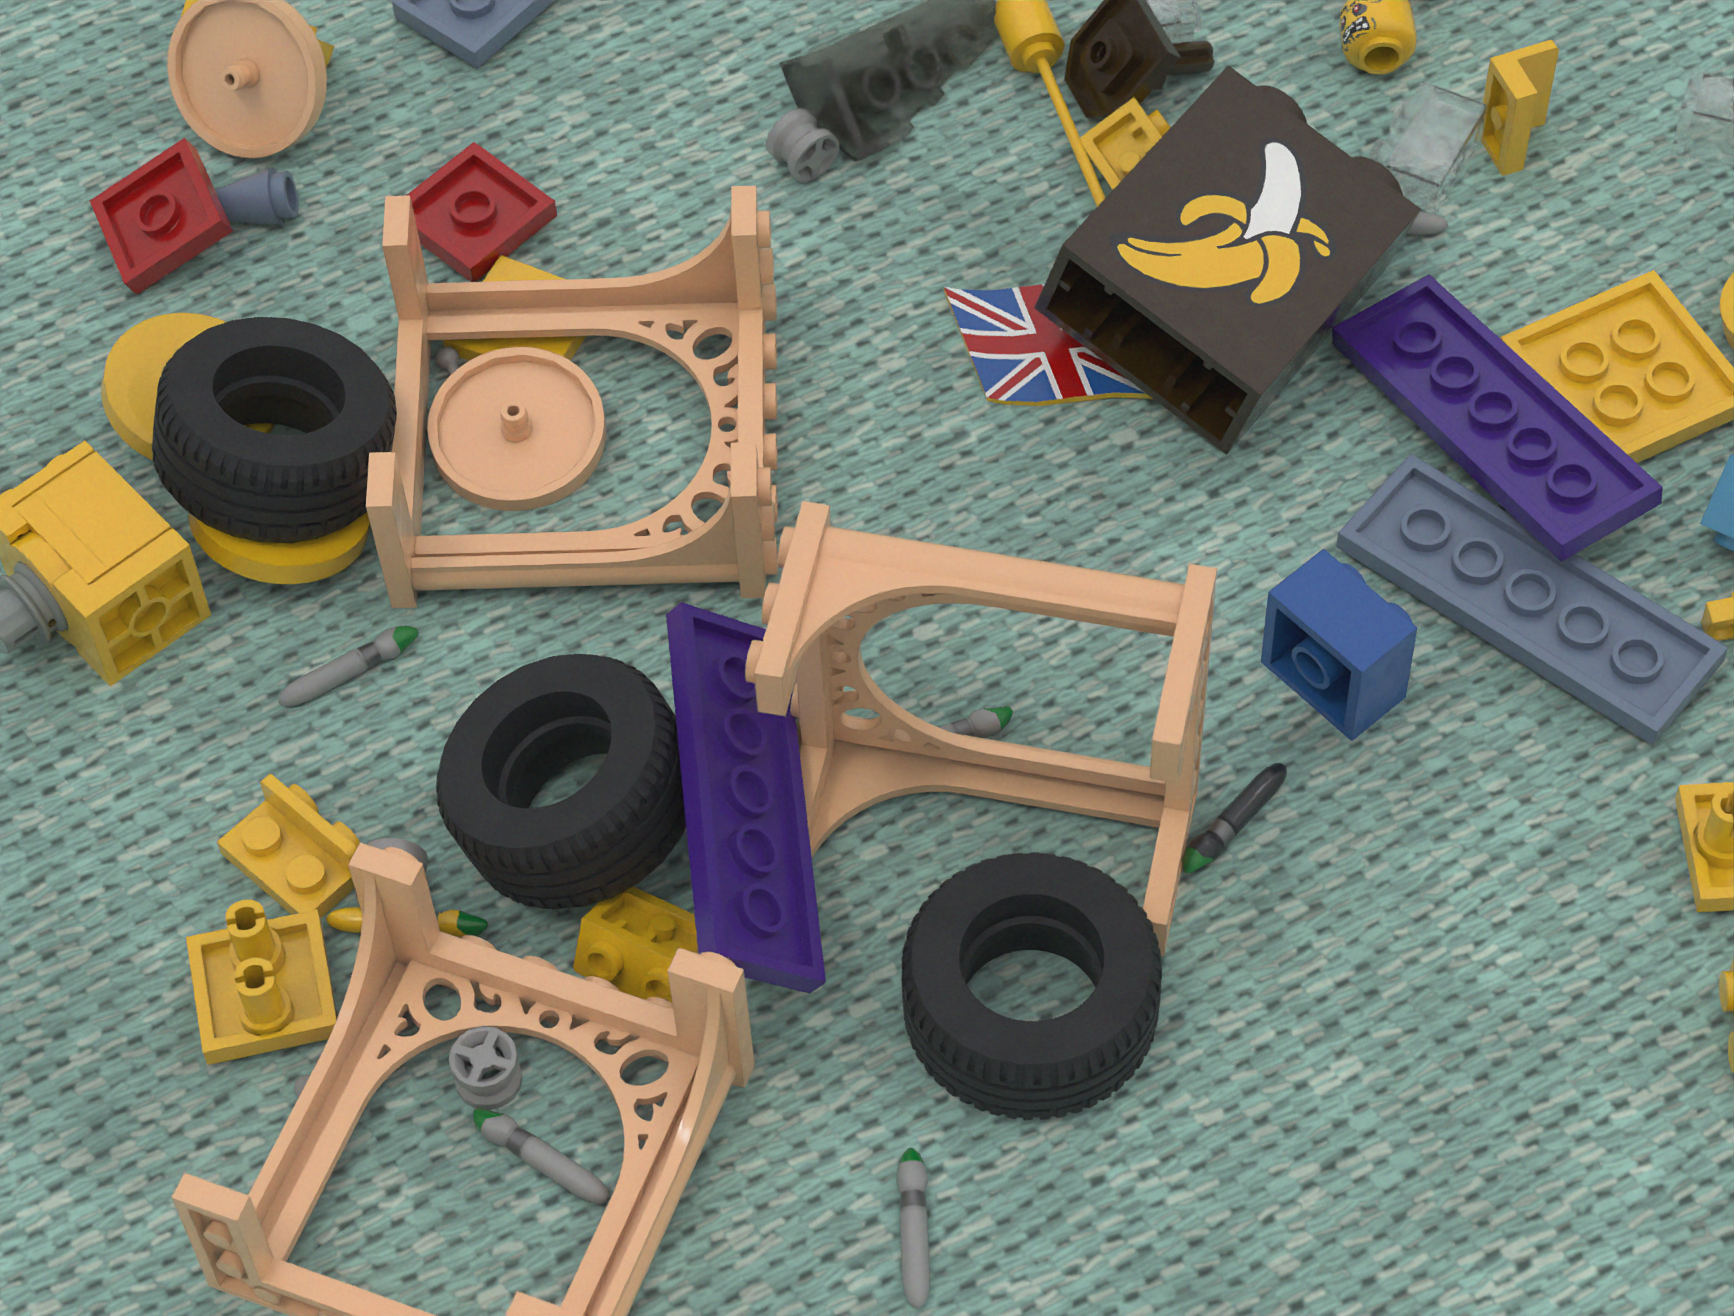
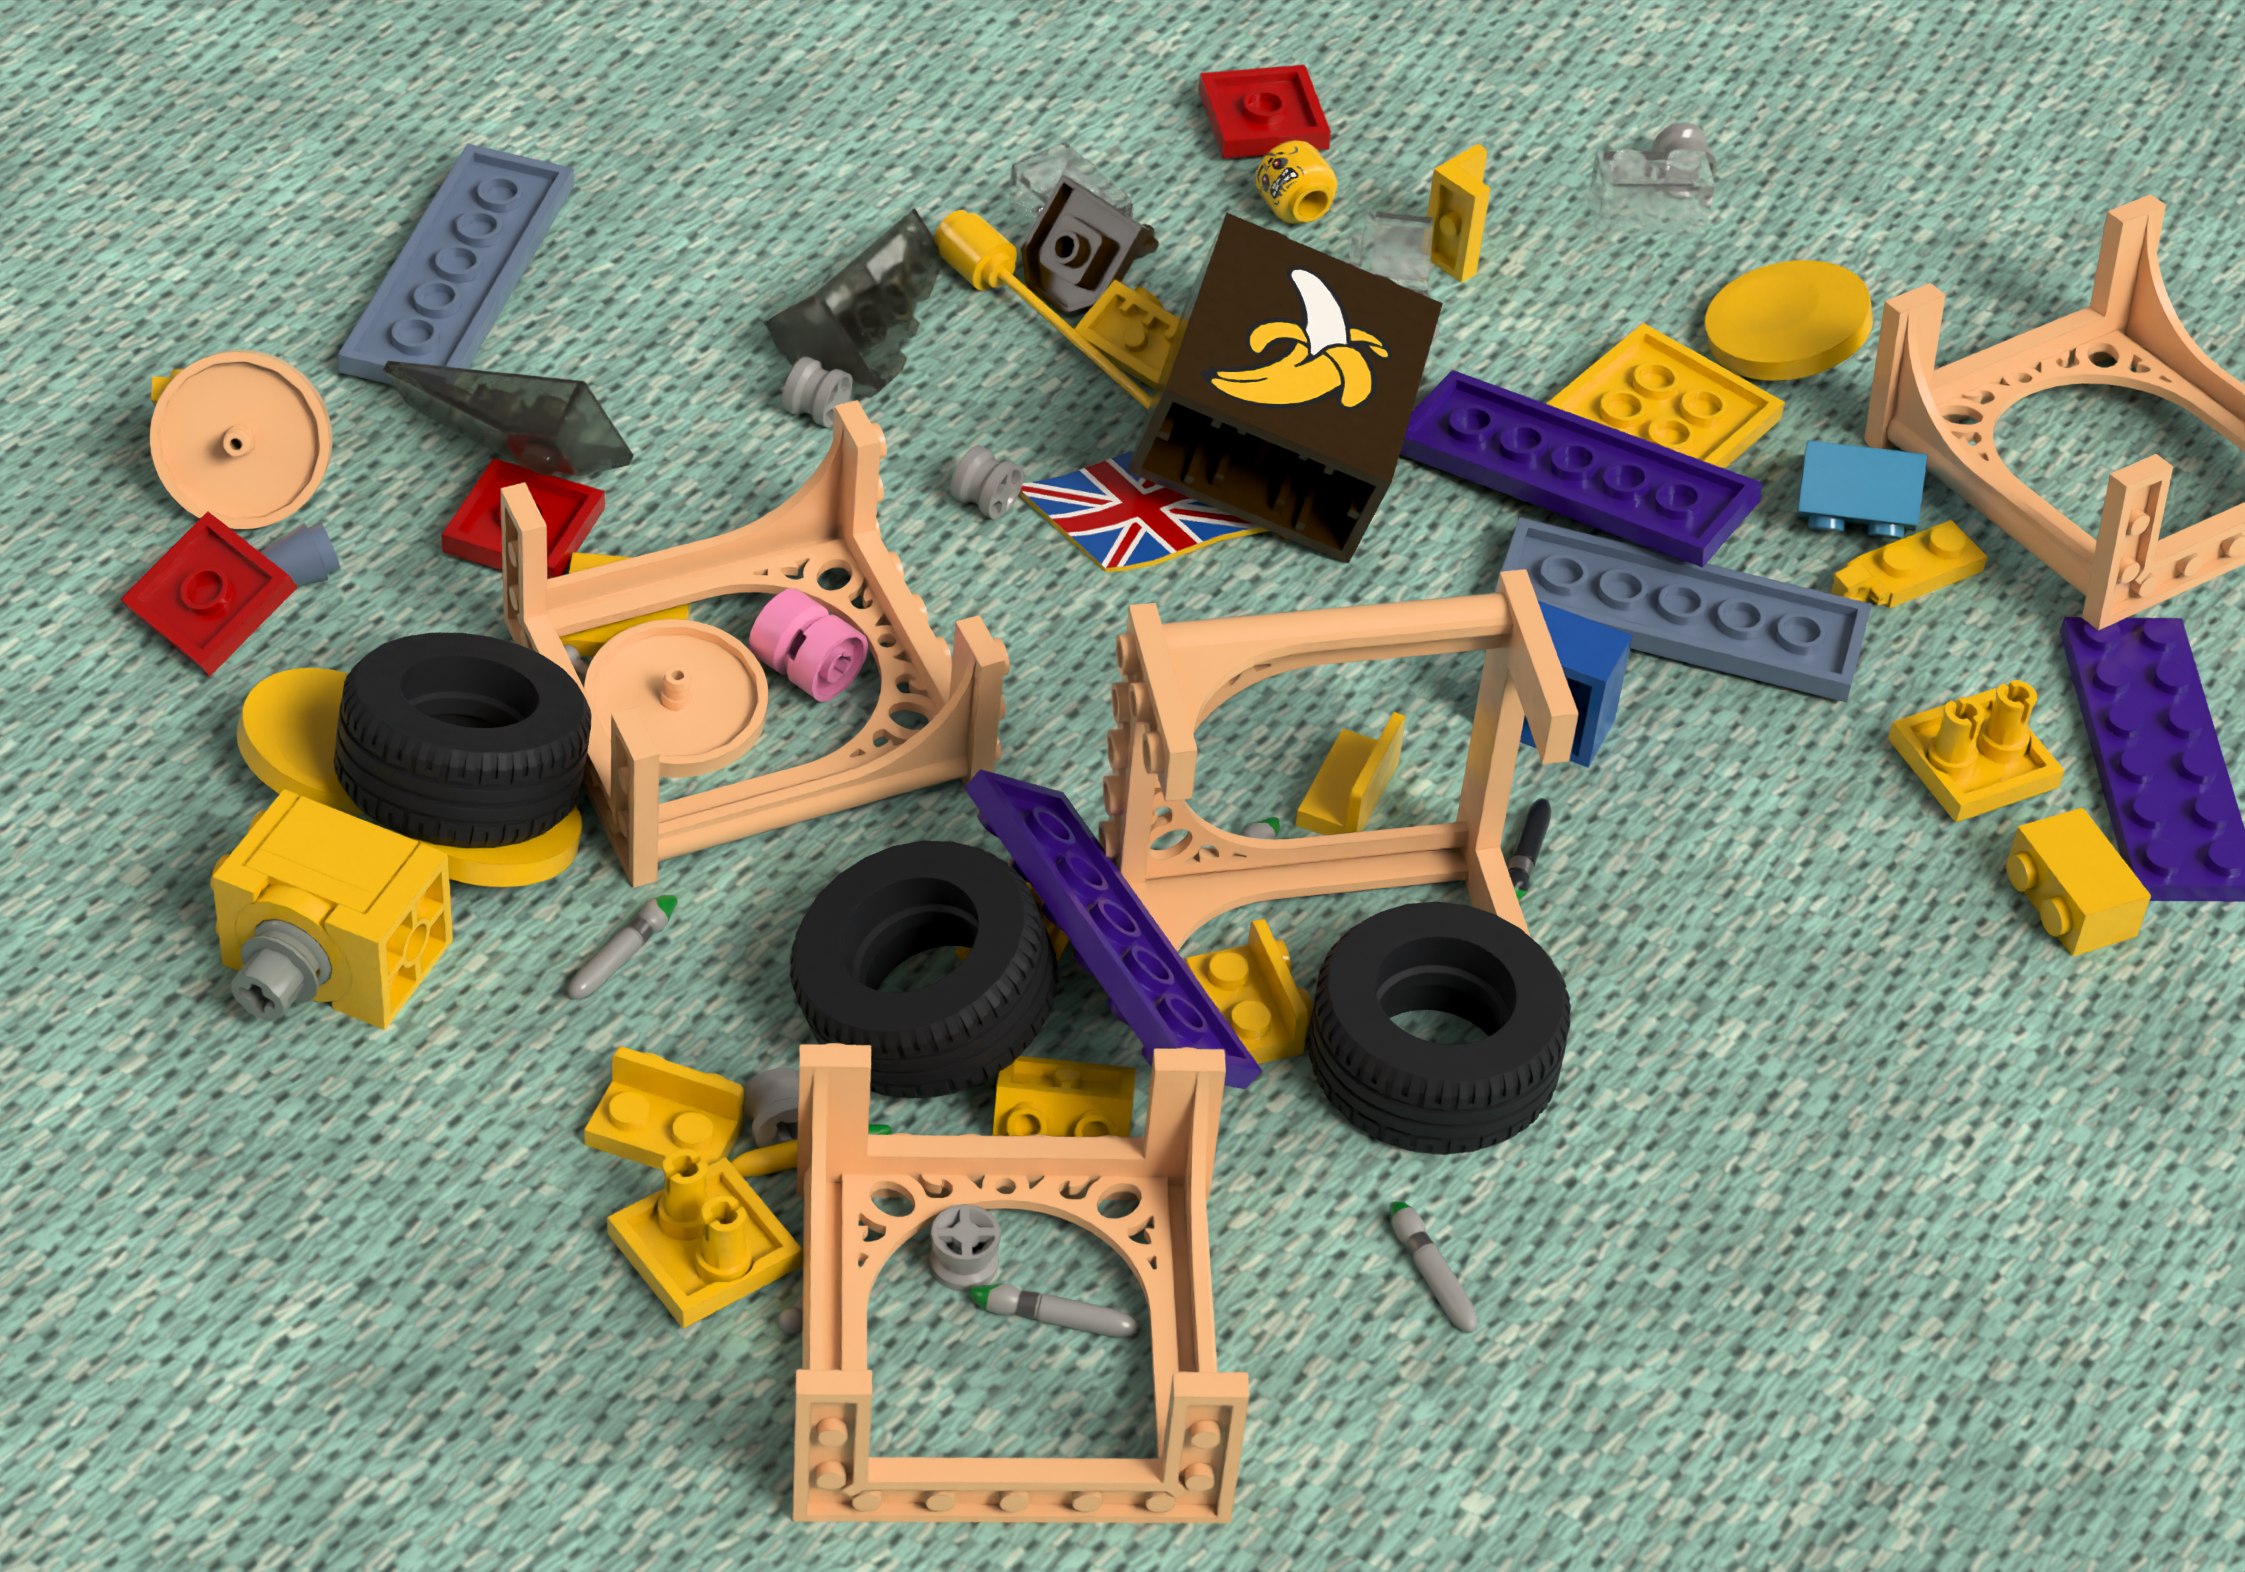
camera: 30 degrees left, 10 degrees down
(511, 117) = (525, 418): none -> clear smoke wedge
(655, 408) = (808, 644): none -> bright pink wheel
(879, 893) = (1257, 994): none -> yellow bracket
(912, 280) = (986, 482): none -> light grey wheel
(1101, 693) = (1351, 780): none -> yellow panel

